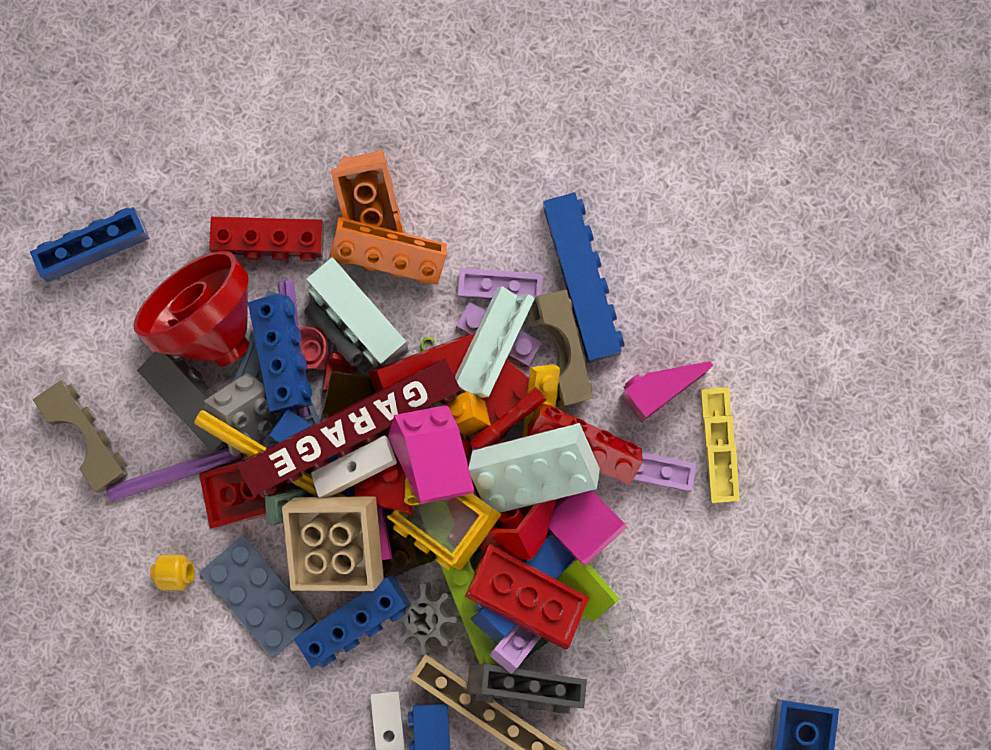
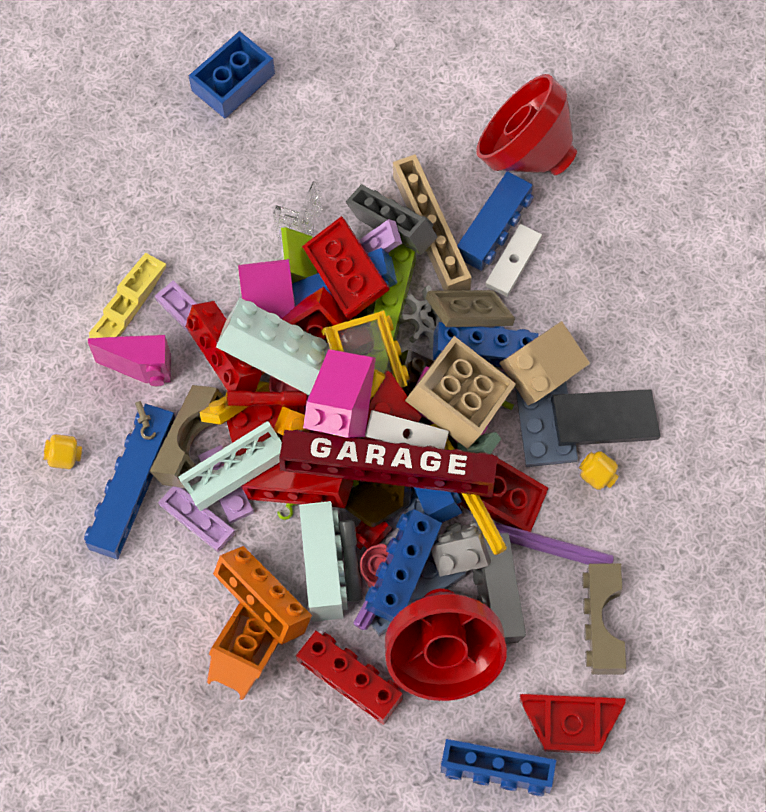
camera: 140 degrees left, 15 degrees down
(54, 328) = (571, 722): none -> red wing
(198, 628) = (605, 417): none -> black tile
(282, 638) = (545, 363): none -> tan slope
(390, 647) = (470, 308): none -> dark tan tile
(608, 332) = (144, 420): none -> dark tan hand
(663, 261) = (62, 451): none -> yellow head

